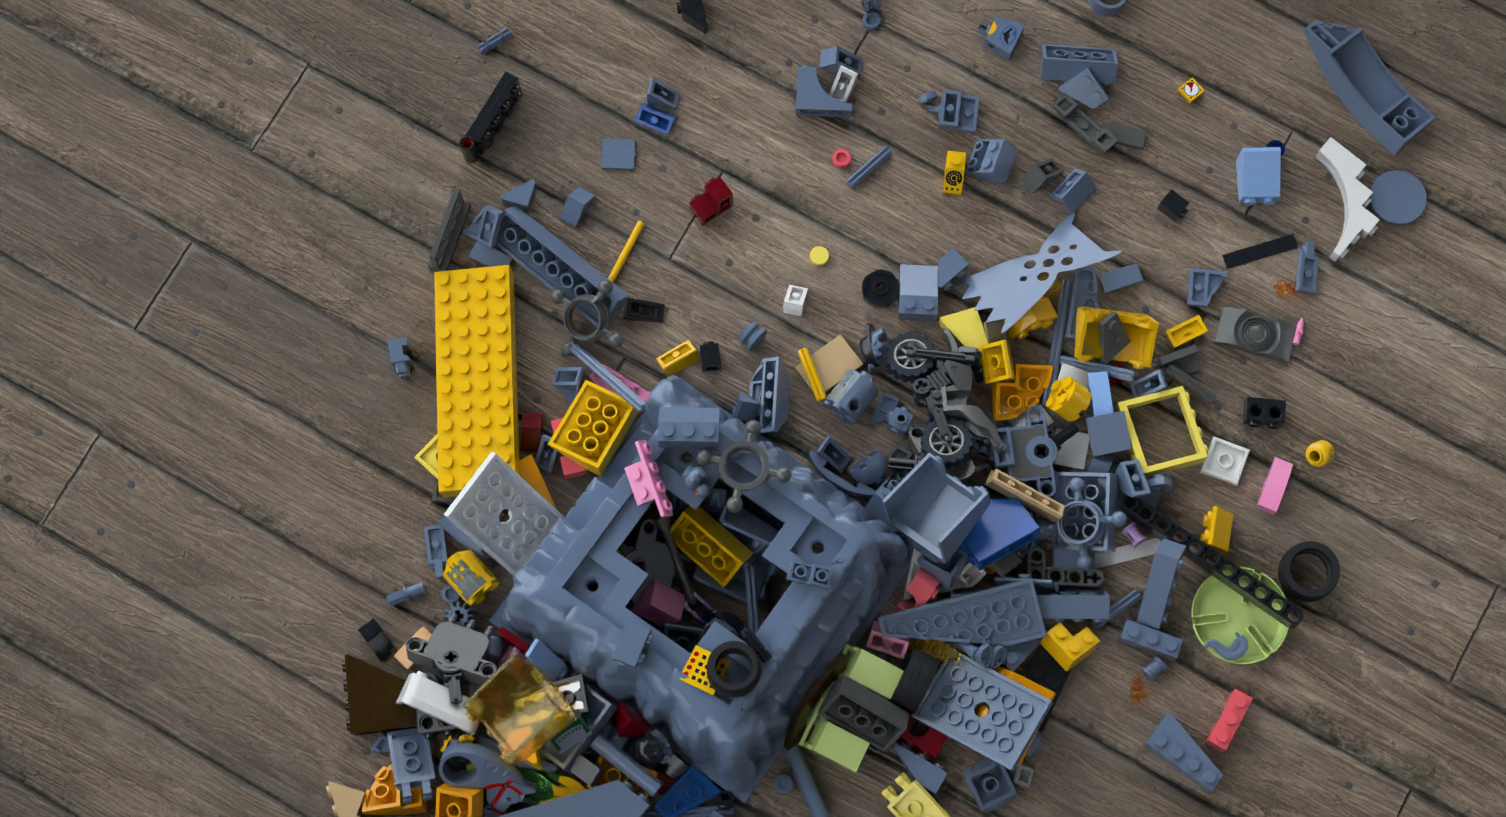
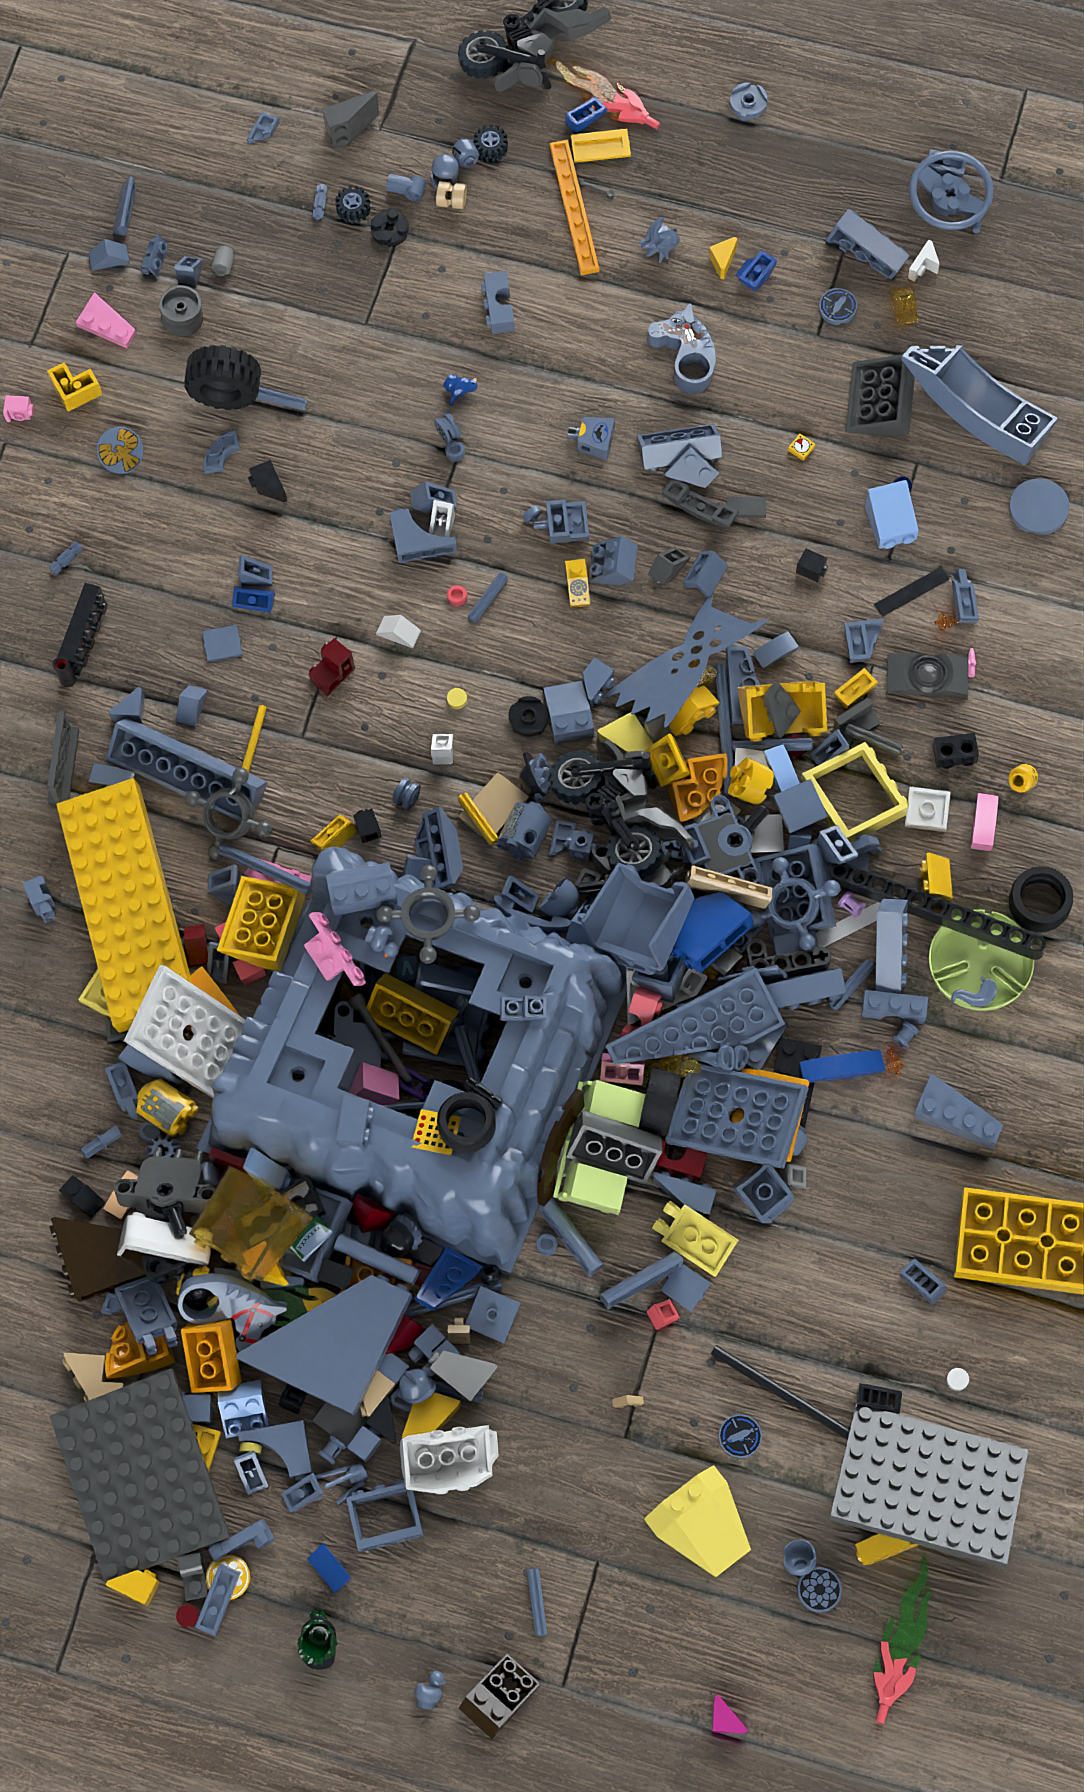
camera: 10 degrees left, 5 degrees down
(485, 226) = (100, 745): sand blue wing -> none
(643, 317) = (286, 788): black slope -> none
(781, 179) = (399, 630): none -> white slope
(1068, 649) = (809, 1033): yellow brick -> none
(1089, 684) = (842, 1066): none -> blue slope
(1229, 720) = (995, 1069): coral arch -> none
(1275, 59) = (880, 397): none -> dark grey slope
(1347, 171) = (982, 493): white arch -> none

